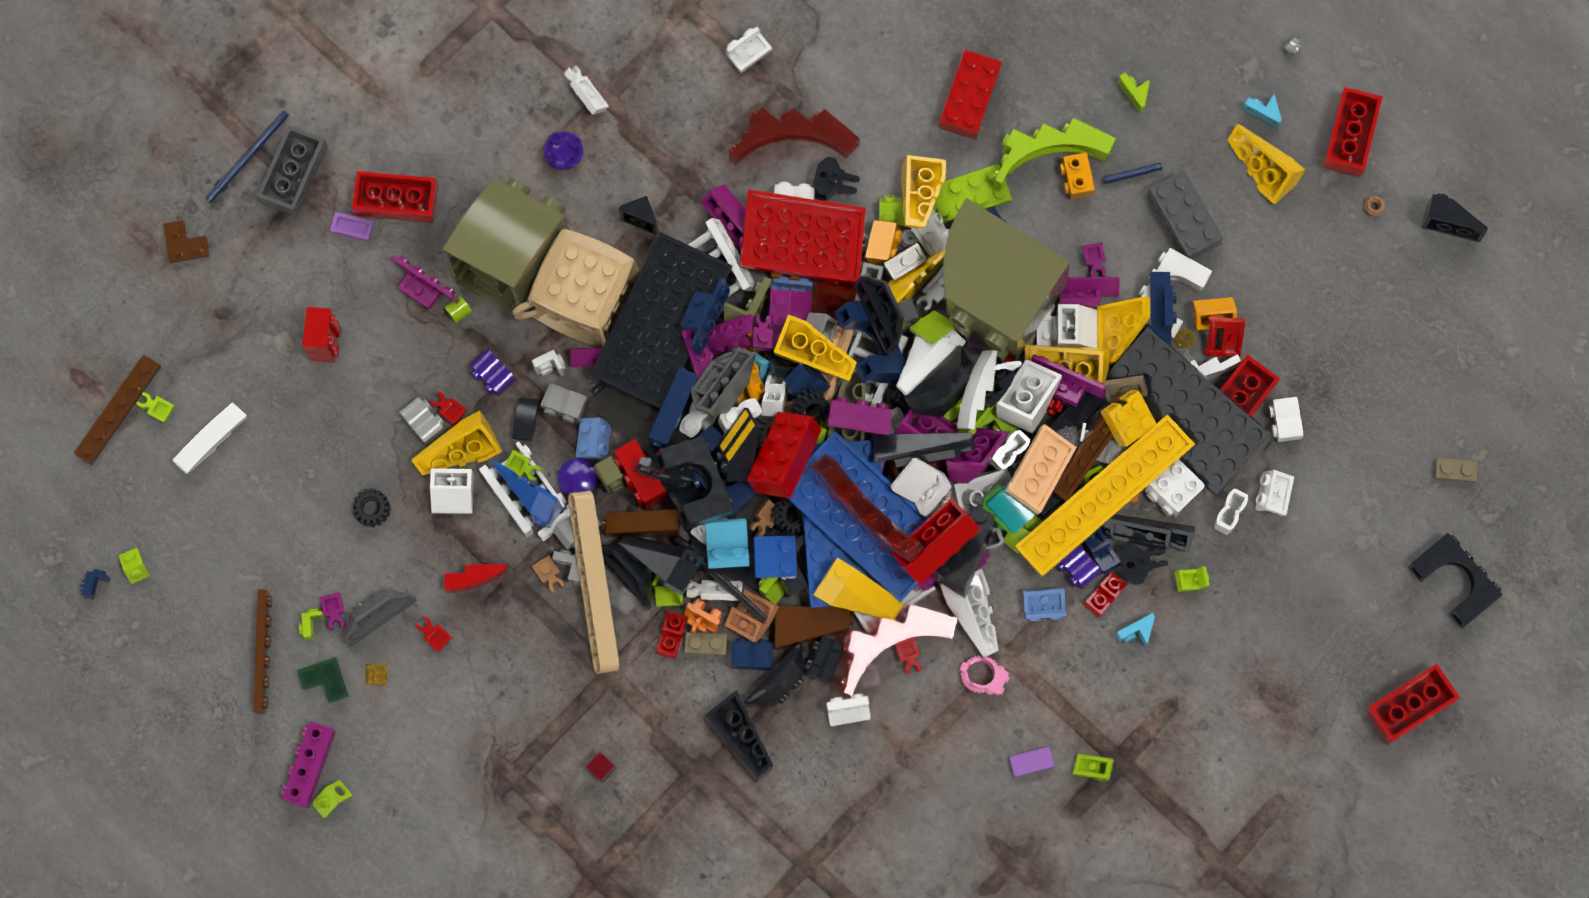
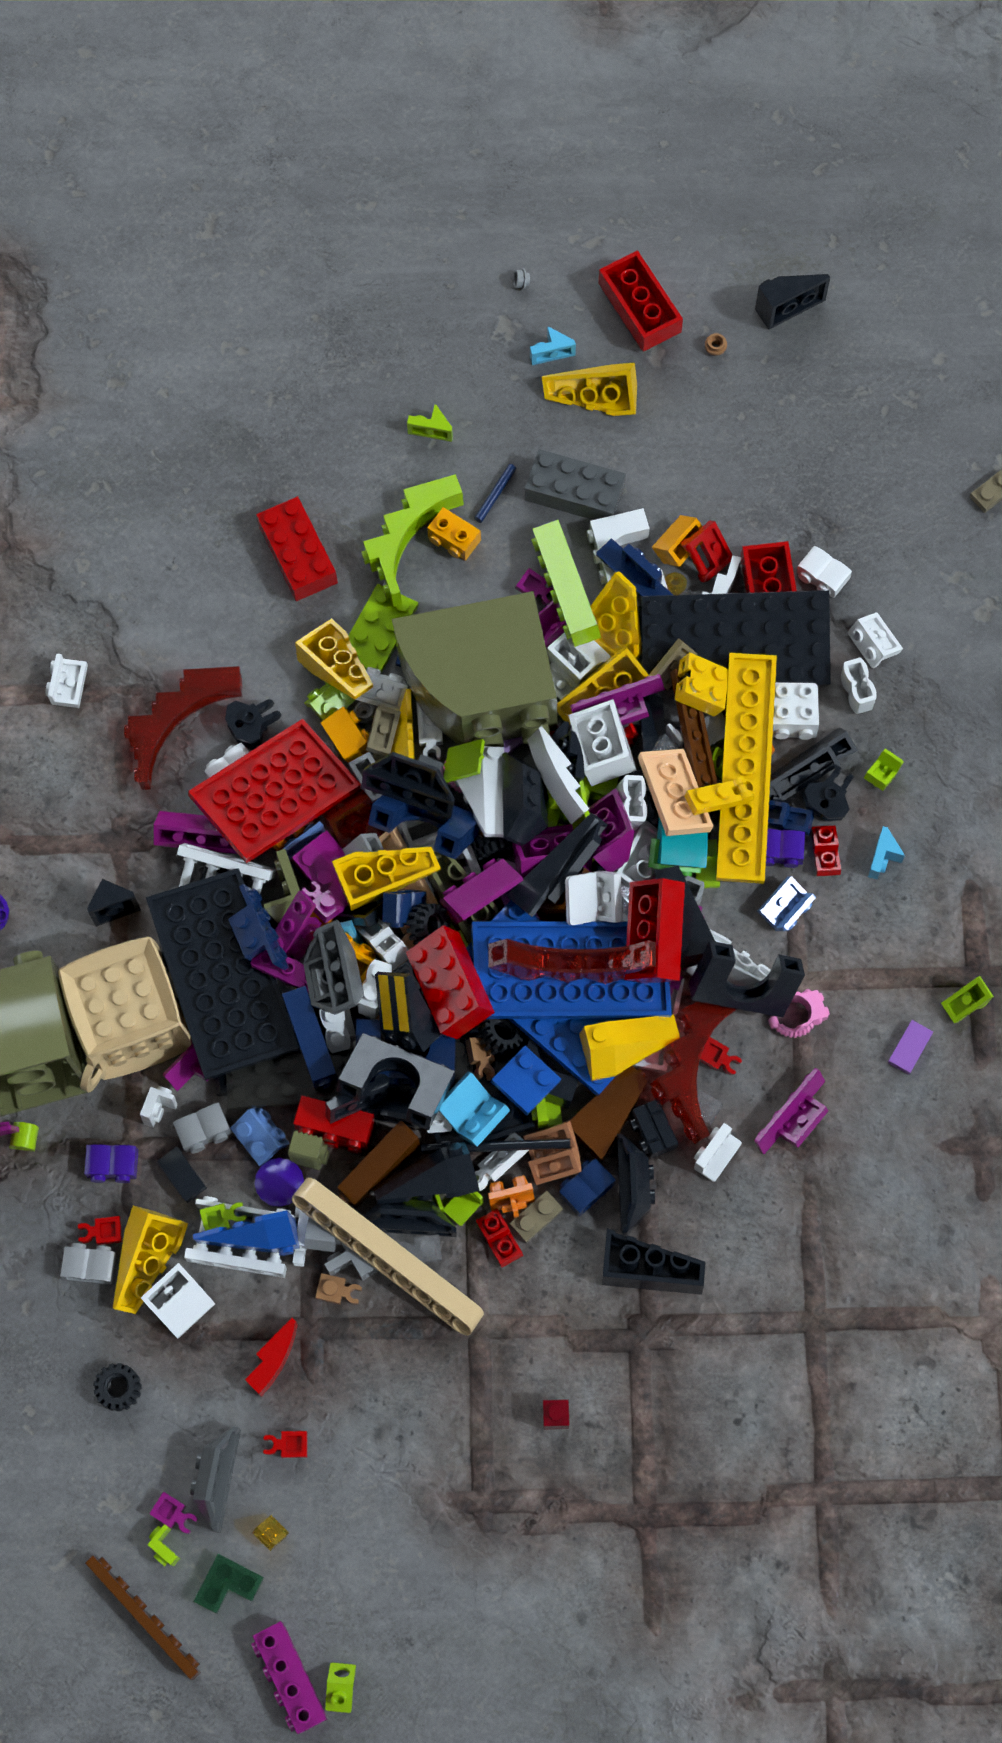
camera: 45 degrees left, 5 degrees down
(918, 735) = (797, 1115): none -> magenta bracket
(971, 647) = (768, 997): none -> black arch
(1064, 497) = (718, 796): none -> yellow plate
(1112, 274) = (566, 582): none -> lime brick

